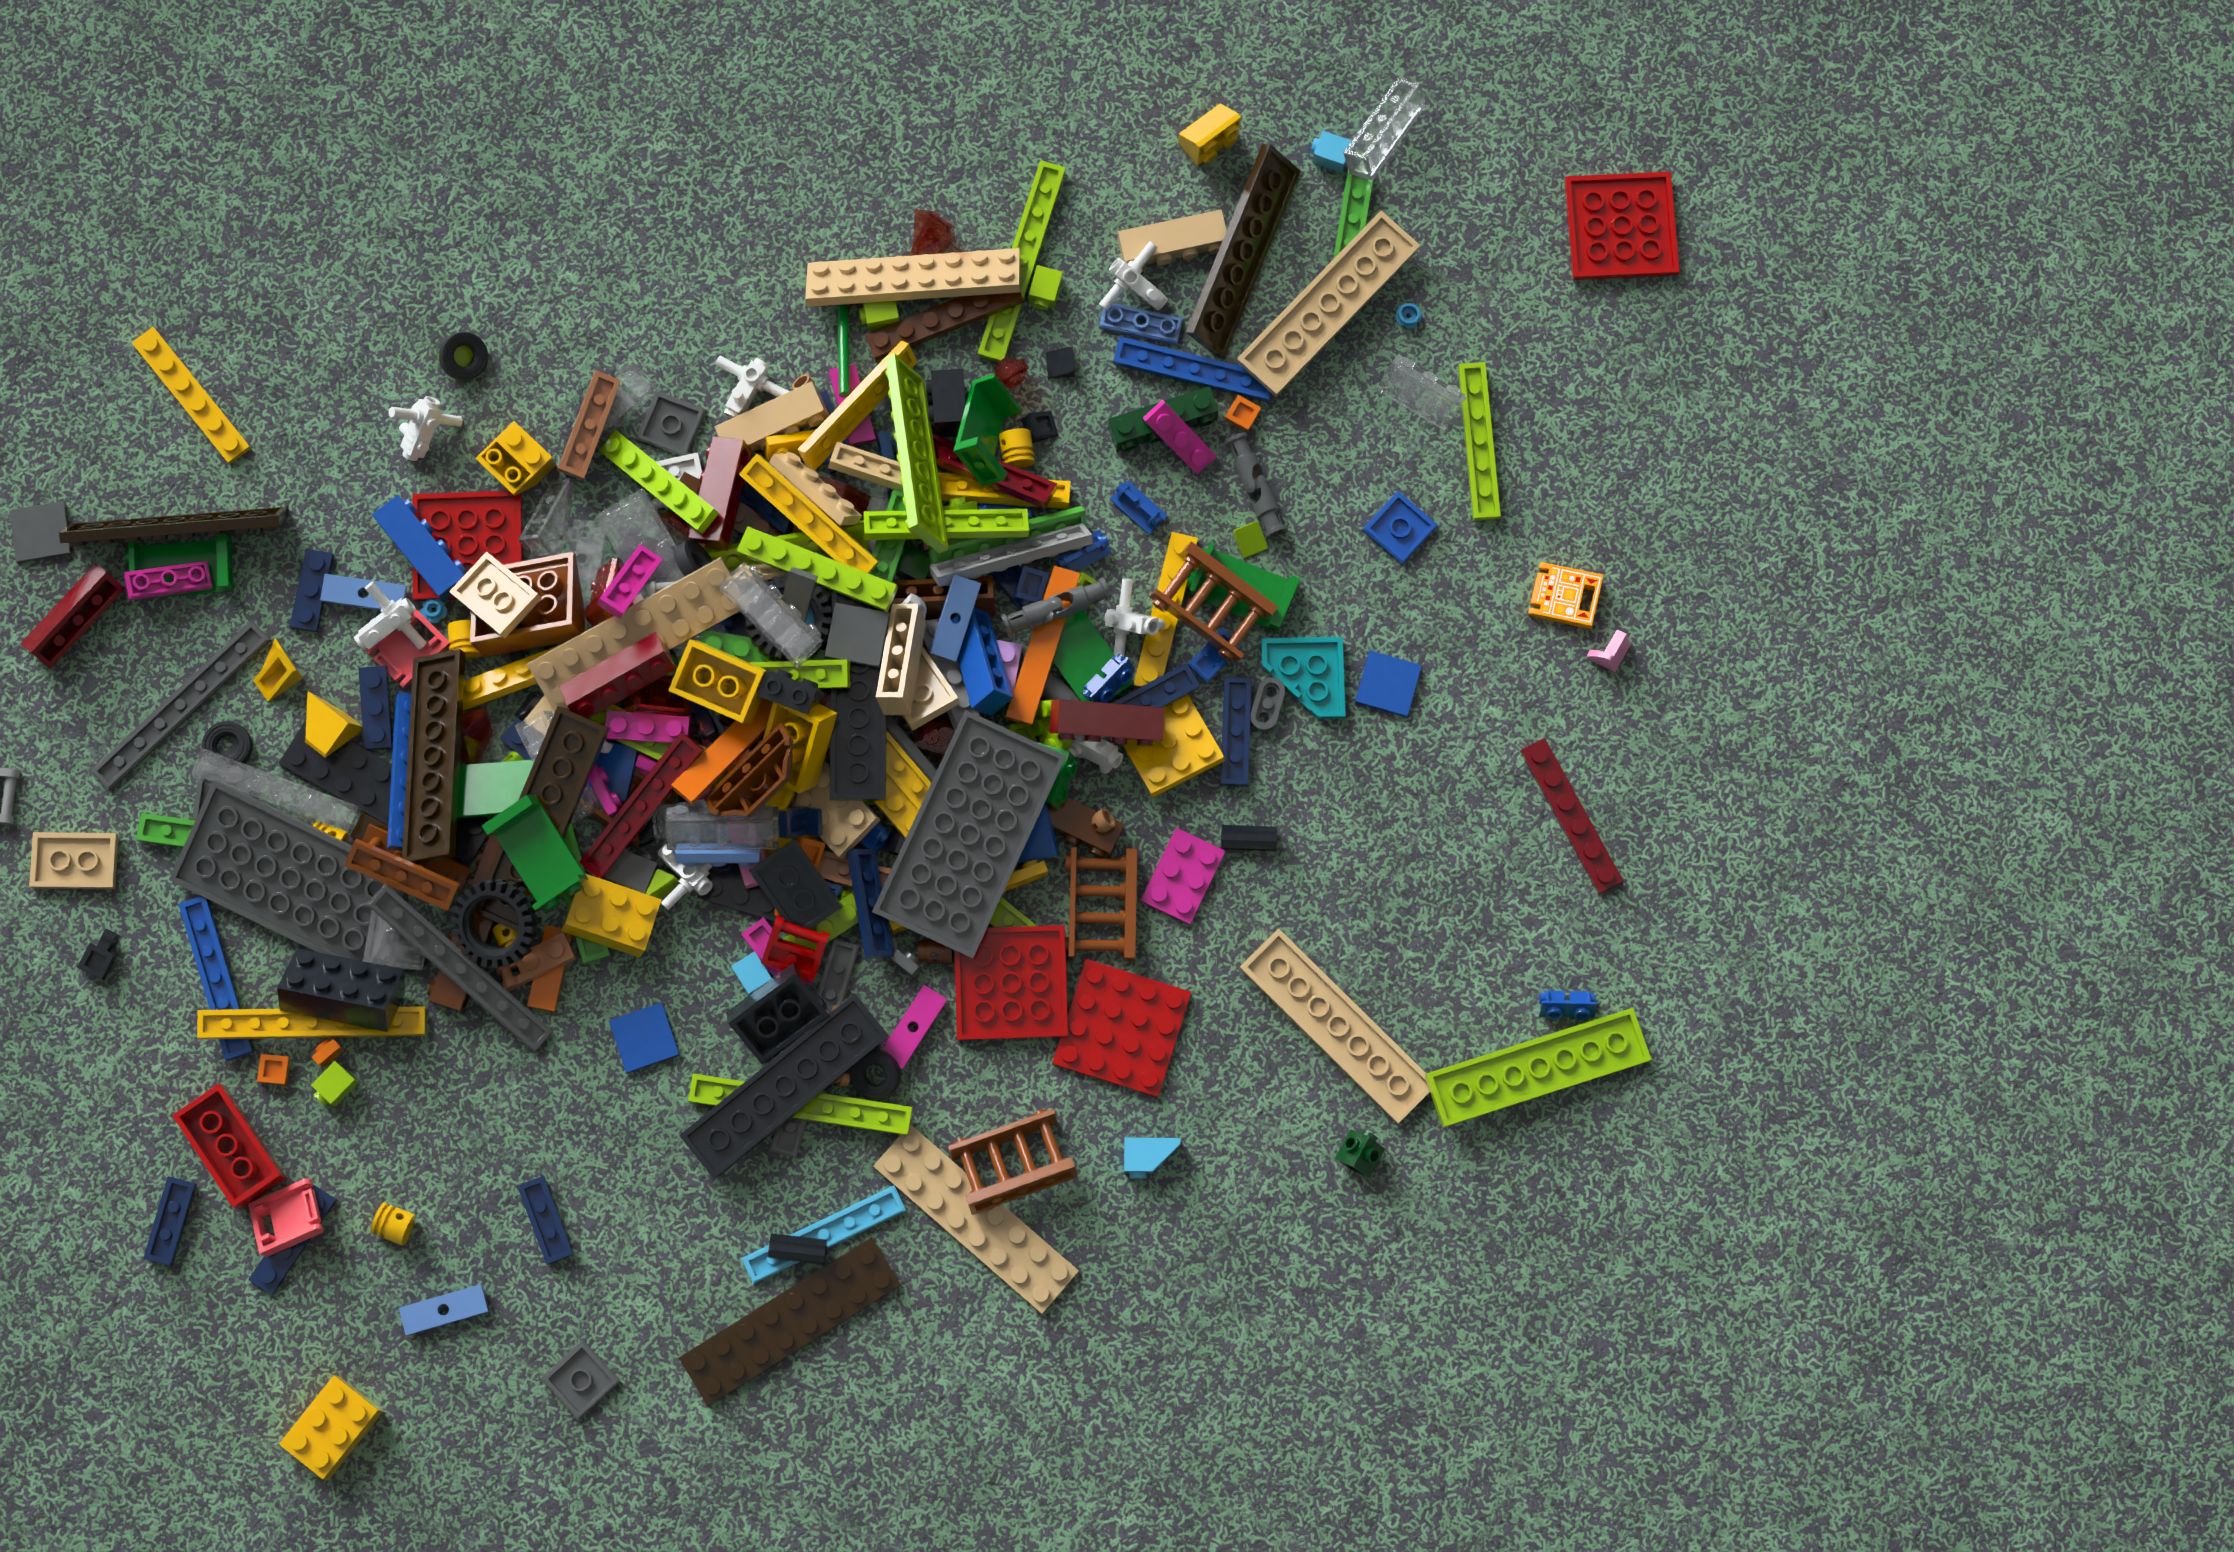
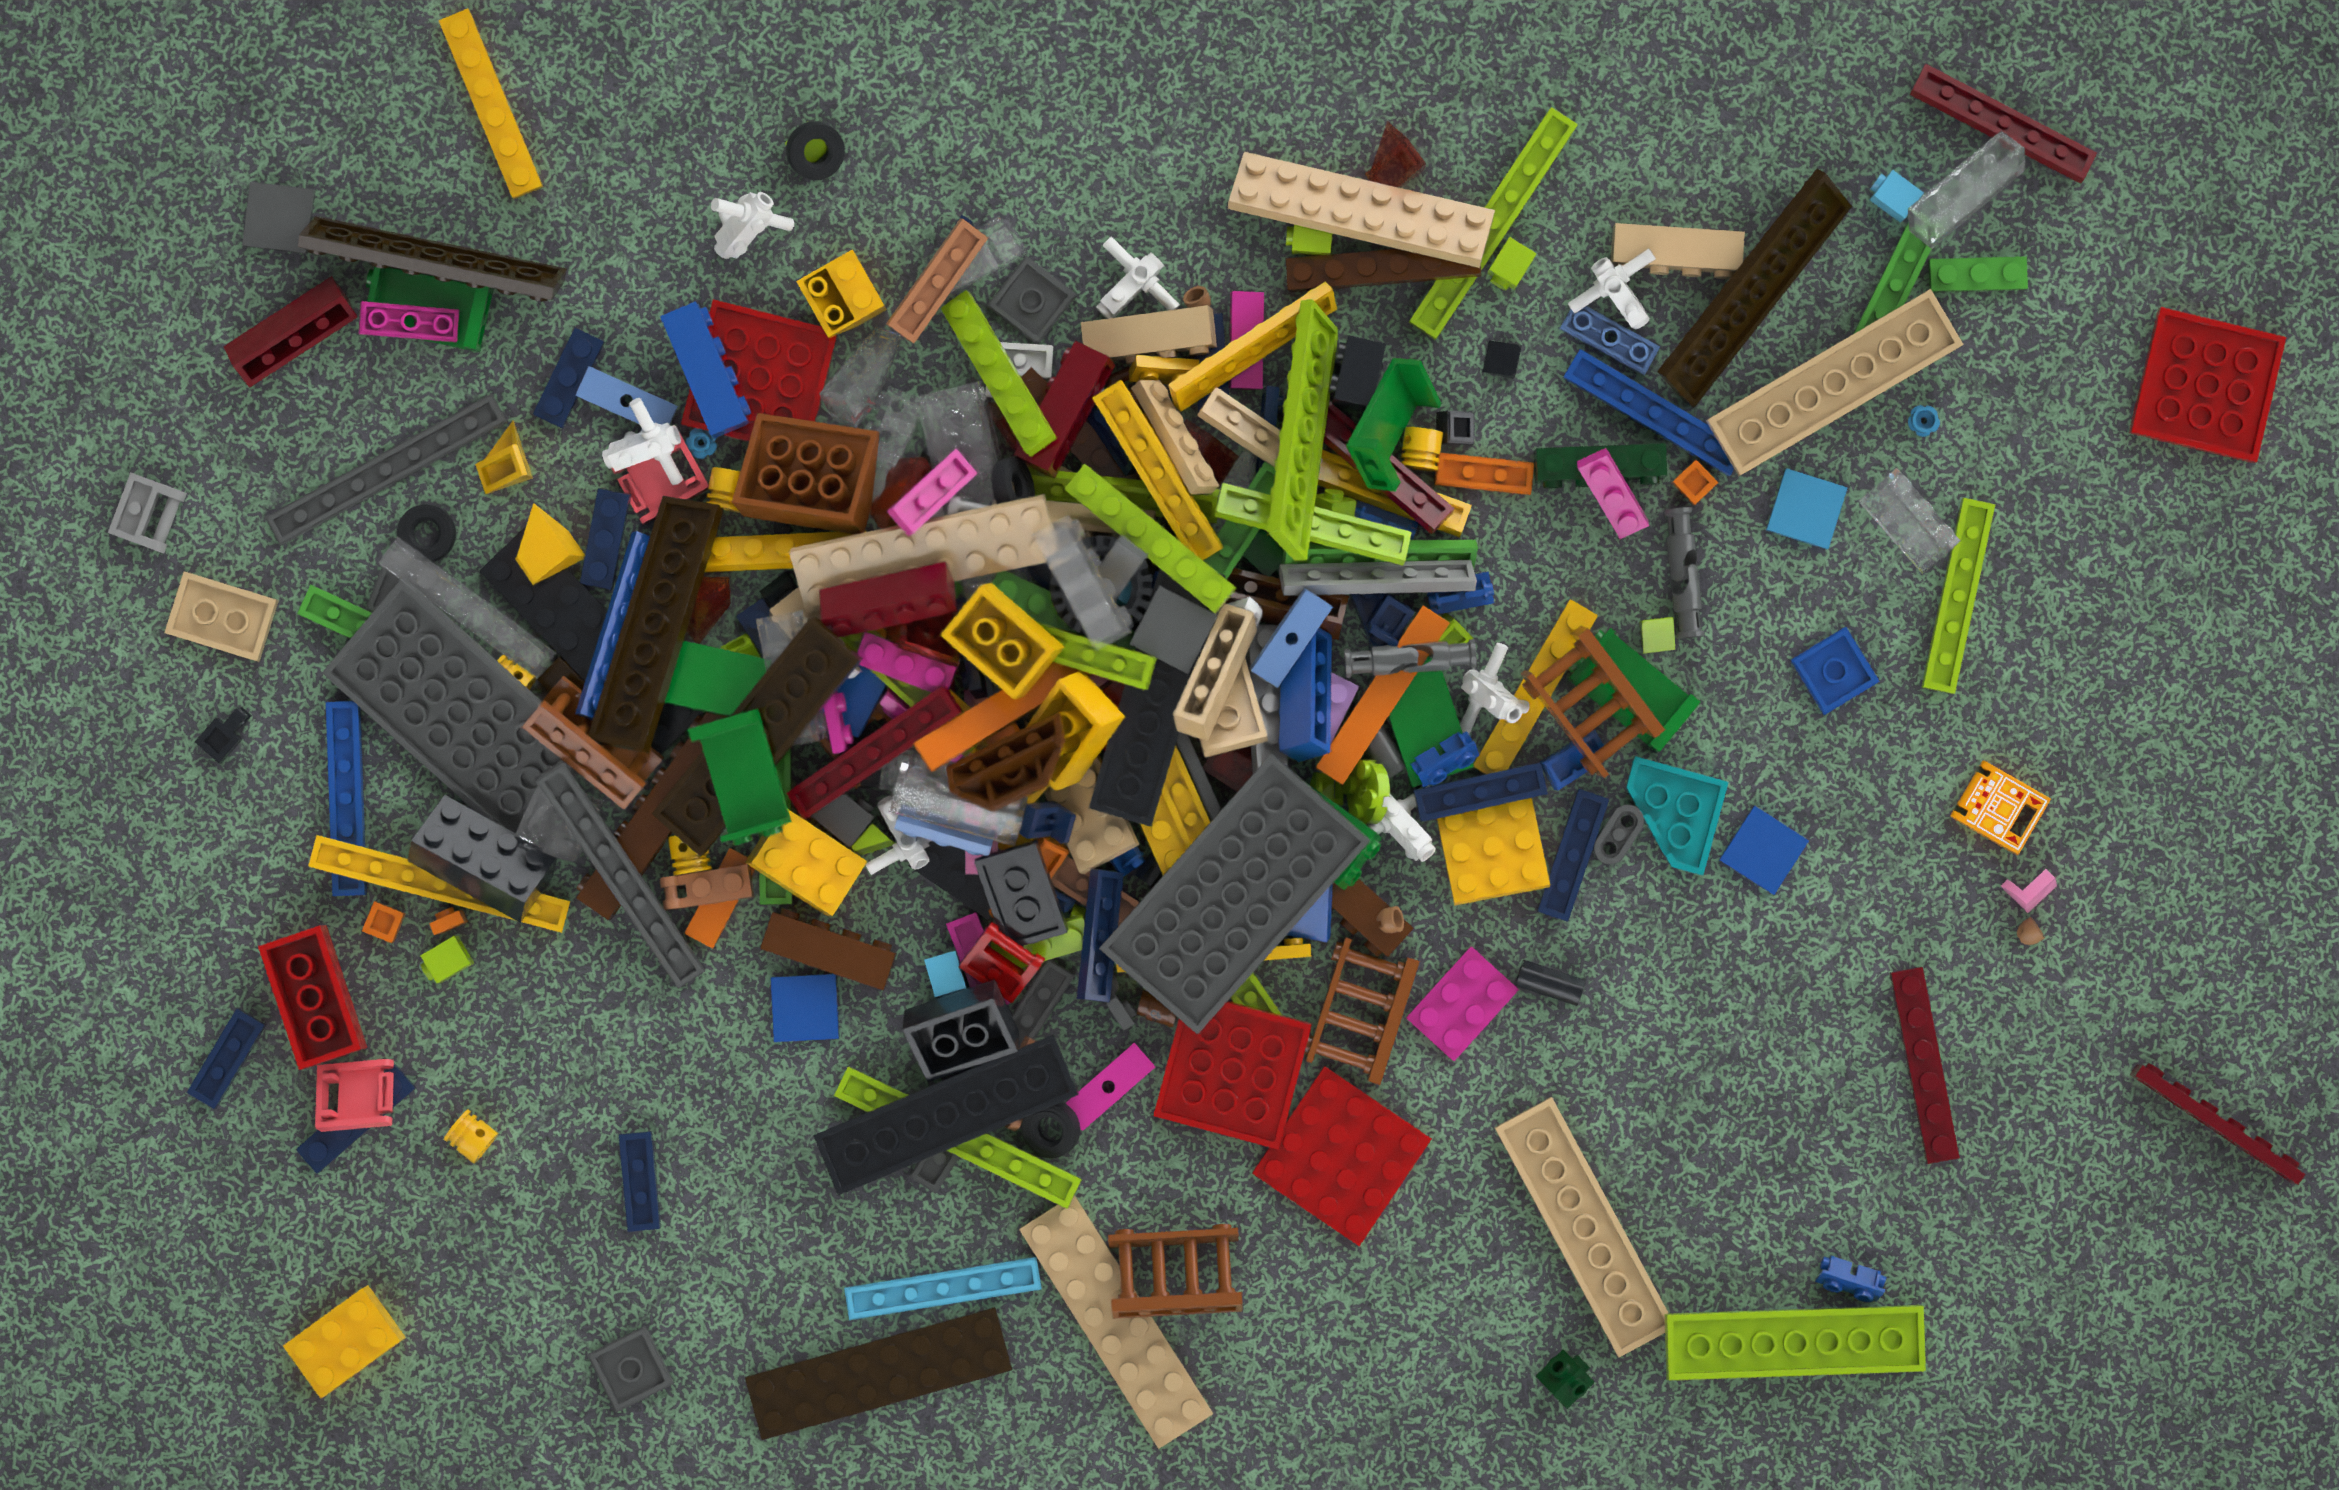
camera: 20 degrees right, 10 degrees up
(427, 1315) = (481, 1247): medium blue tile -> none
(472, 942) = (642, 850): black tyre -> none
(495, 595) = (775, 456): plate -> none
(650, 983) = (828, 950): none -> reddish brown brick
(784, 690) = (1077, 679): black bracket -> none
(797, 1248) = (909, 1299): black axle -> none
(843, 350) = (1254, 274): green bar -> none
(1011, 371) = (1440, 355): clear red plate -> none
(1073, 455) = (1484, 473): none -> orange tile
(1106, 720) = (1428, 810): dark red brick -> none
(1138, 507) = (1541, 558): blue hinge -> none
(1146, 1154) = (1327, 1308): medium azure slope -> none
(1210, 134) = (1760, 132): yellow slope -> none
(1338, 409) = (1806, 508): none -> dark azure tile
(1385, 72) = (1992, 116): none -> dark red plate
(1415, 193) = (1978, 274): none -> bright green plate
(1621, 686) = (2029, 932): none -> medium nougat hinge
(1830, 794) = (2230, 1129): none -> dark red plate

